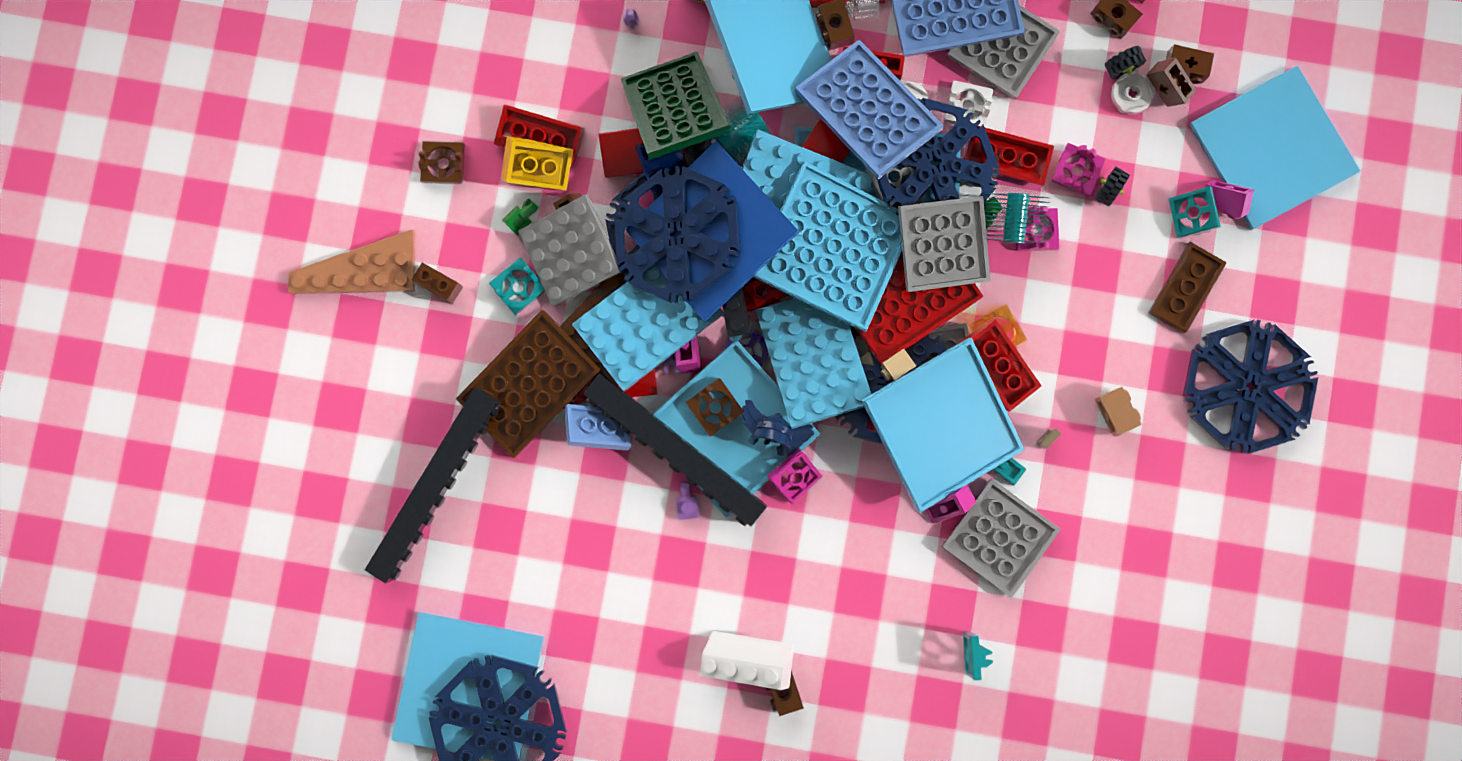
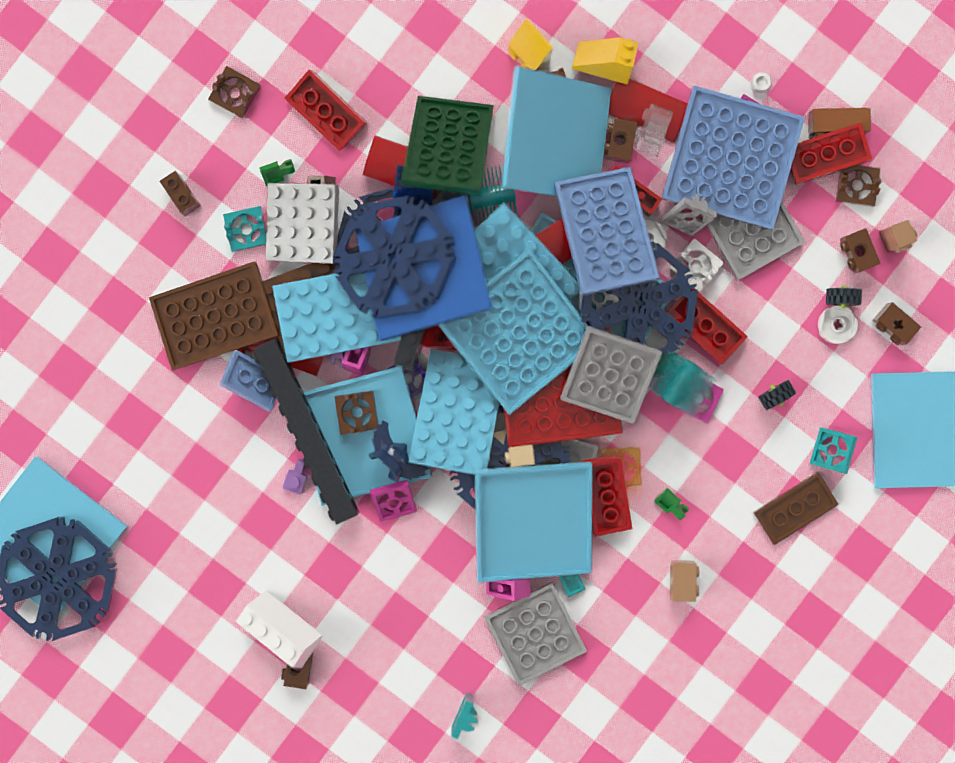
camera: 30 degrees right, 5 degrees up
(371, 268) = (133, 152): nougat wing -> none
(432, 485) = (95, 360): black brick -> none
(536, 164) = (310, 134): yellow slope -> none
(631, 18) = (452, 48): medium lavender plate -> none
(946, 69) = (677, 219): none -> light grey piece
(1048, 438) = (616, 573): dark tan tile -> none
(1063, 342) = (671, 503): none -> green plate
(1071, 183) = (760, 346): dark pink piece -> none
(1171, 82) = (872, 333): reddish brown brick -> none
(1231, 198) = (869, 453): dark pink slope -> none
(1265, 383) = (816, 615): dark blue plate -> none

